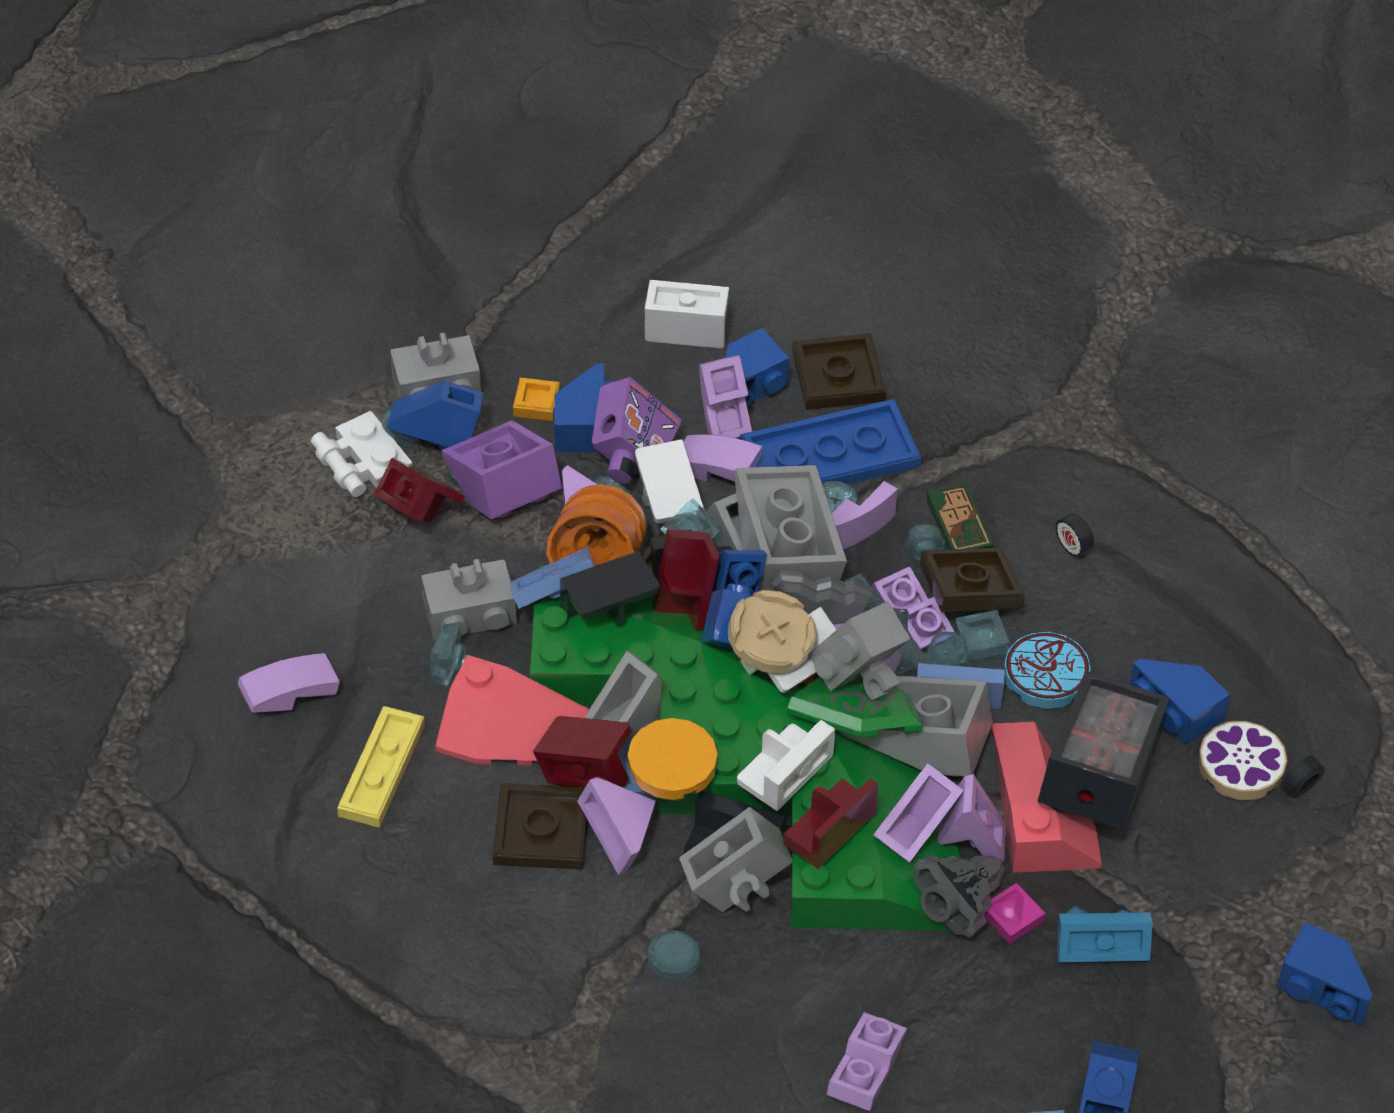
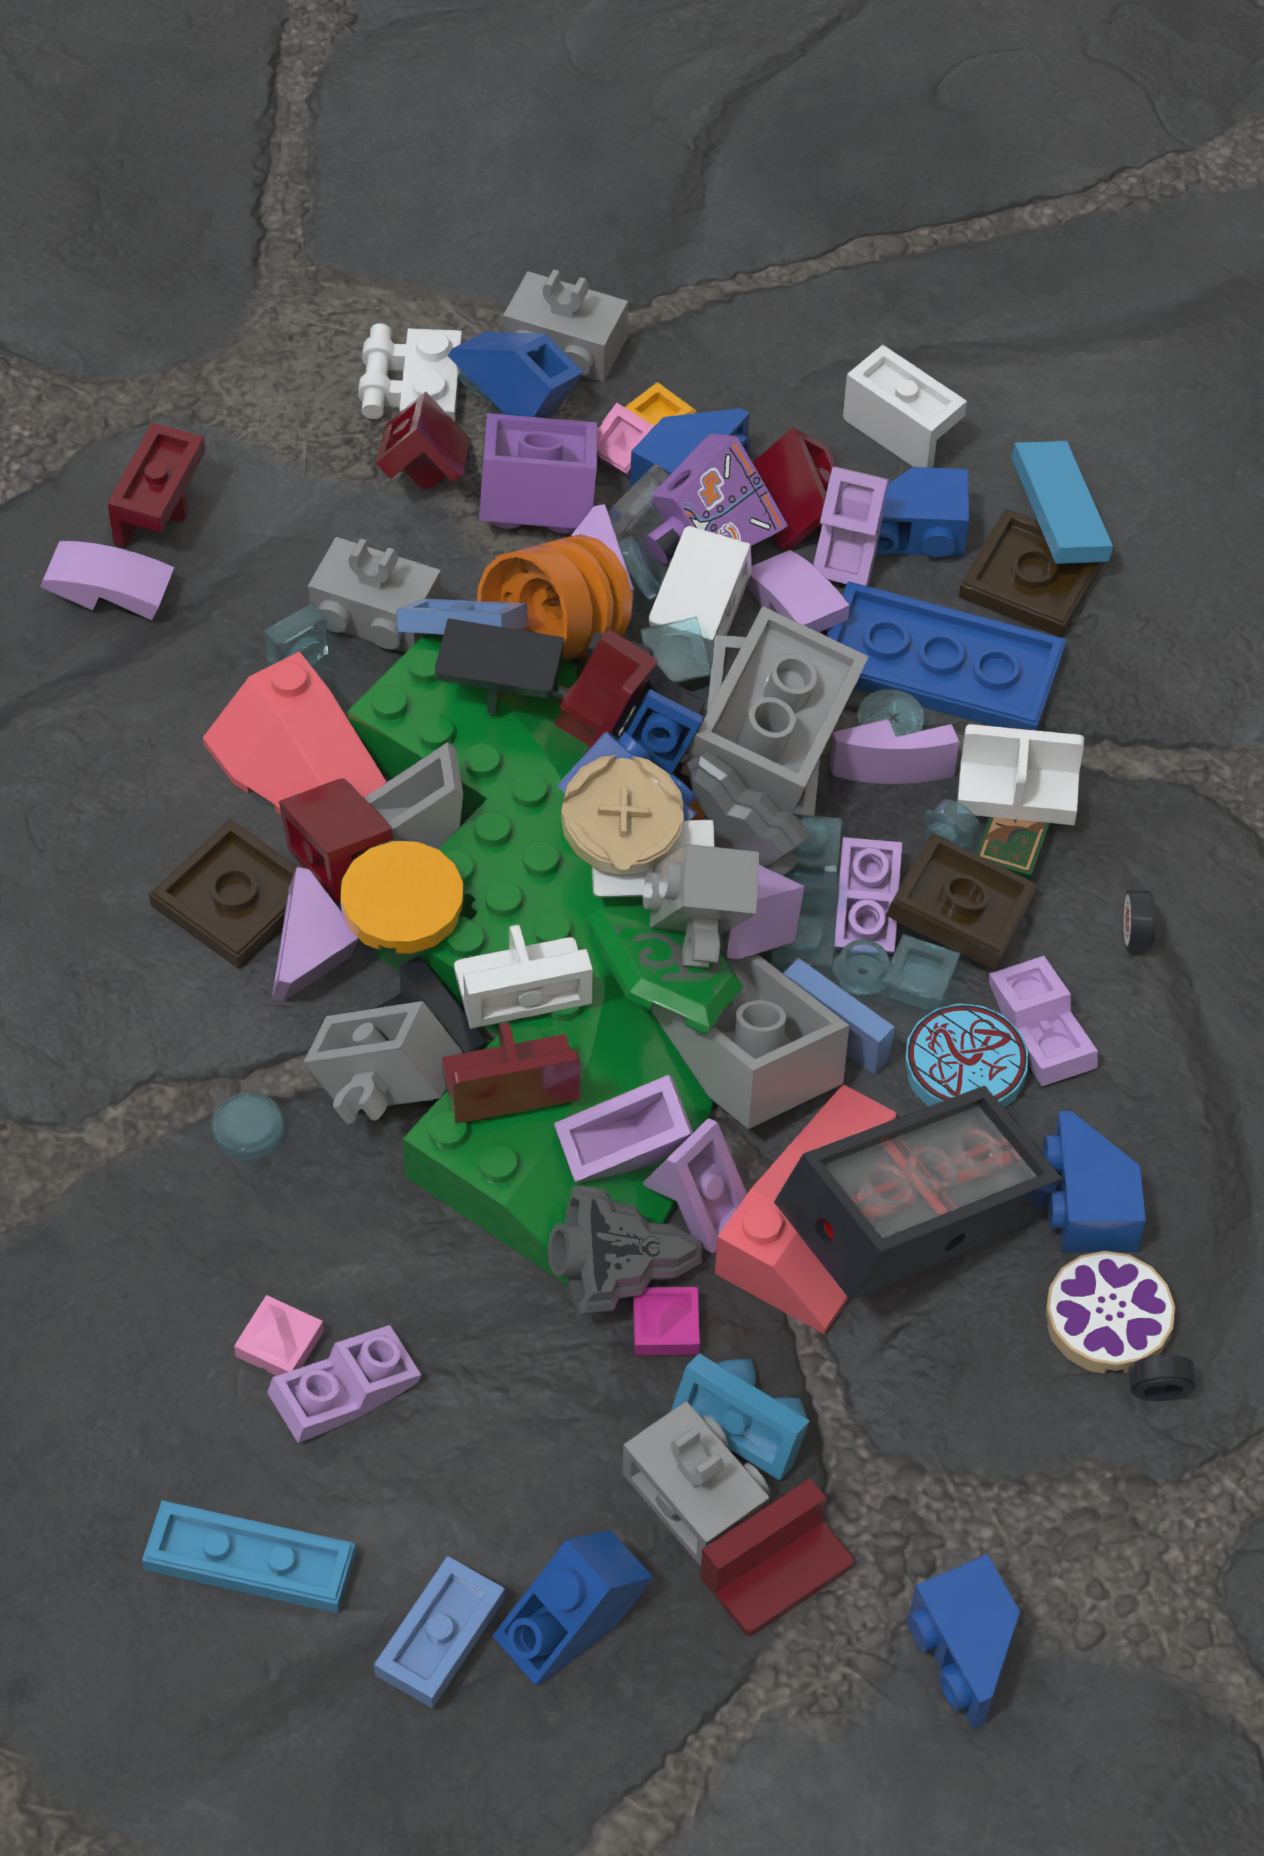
camera: 35 degrees right, 5 degrees up
(272, 605) = (155, 482): none -> dark red panel
(381, 766) = (127, 726): light yellow tile -> none
(536, 418) = (618, 436): none -> bright pink tile
(580, 450) = (637, 502): none -> clear tile
(671, 390) = (797, 478): none -> dark red panel
(806, 1060) = (278, 1337): none -> bright pink tile
(824, 319) = (1061, 502): none -> dark azure tile
(944, 488) = (1020, 774): none -> white panel
(1060, 614) = (1041, 1010): none -> lavender slope
(1113, 988) = (693, 1478): none -> light grey brick
(1189, 1004) = (775, 1559): none -> dark red panel

